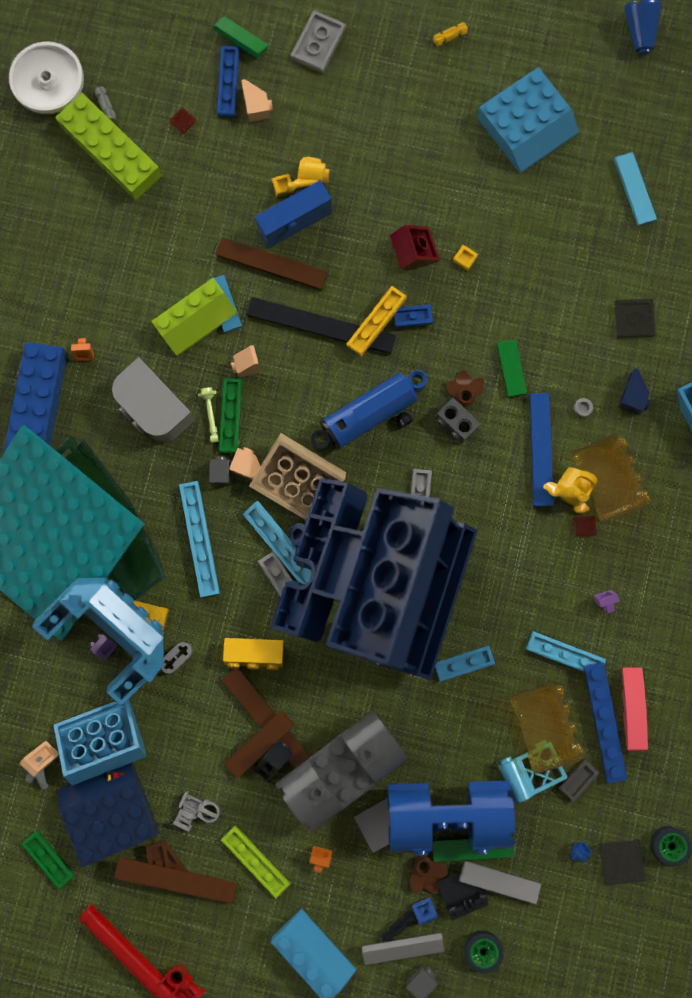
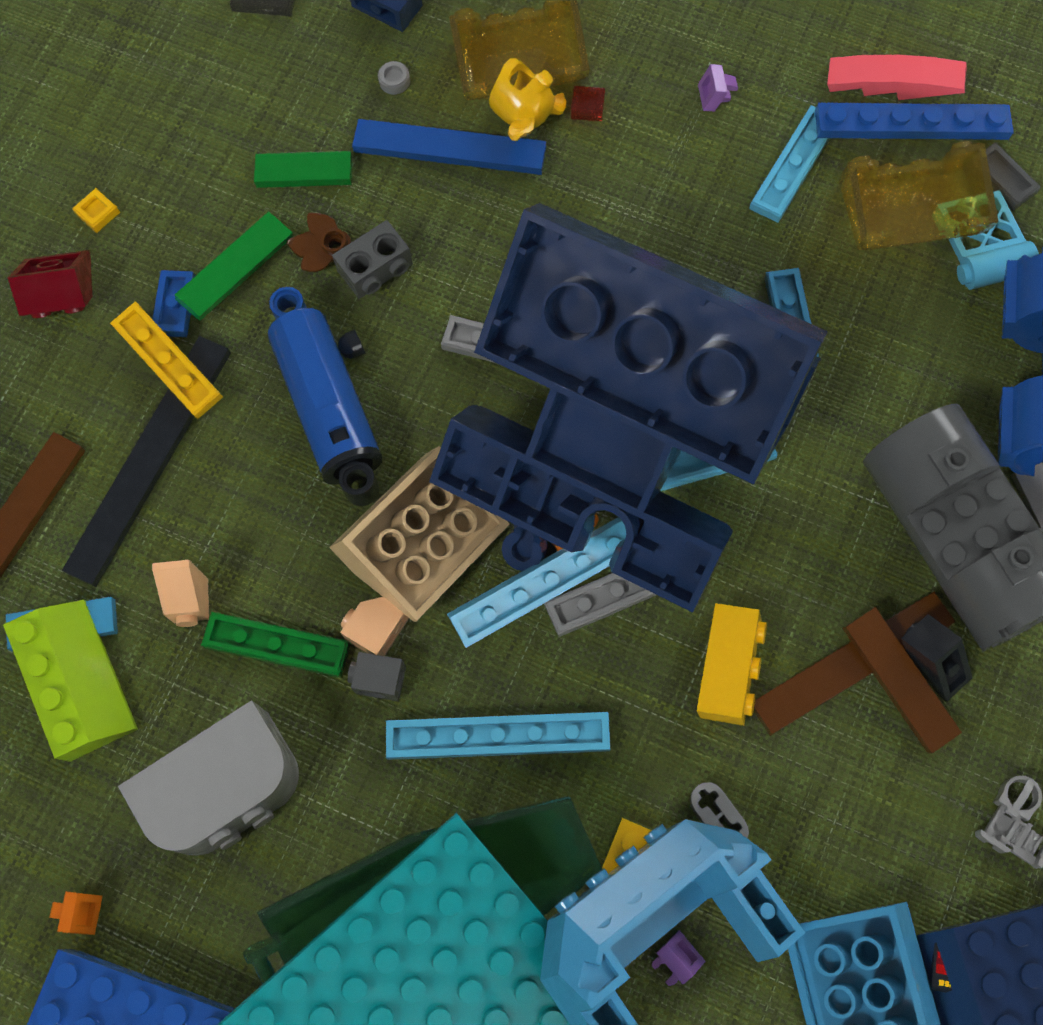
camera: 75 degrees left, 10 degrees down
(207, 394) = (225, 679): yellowish green piece -> none
(441, 344) = (233, 266): none -> green tile

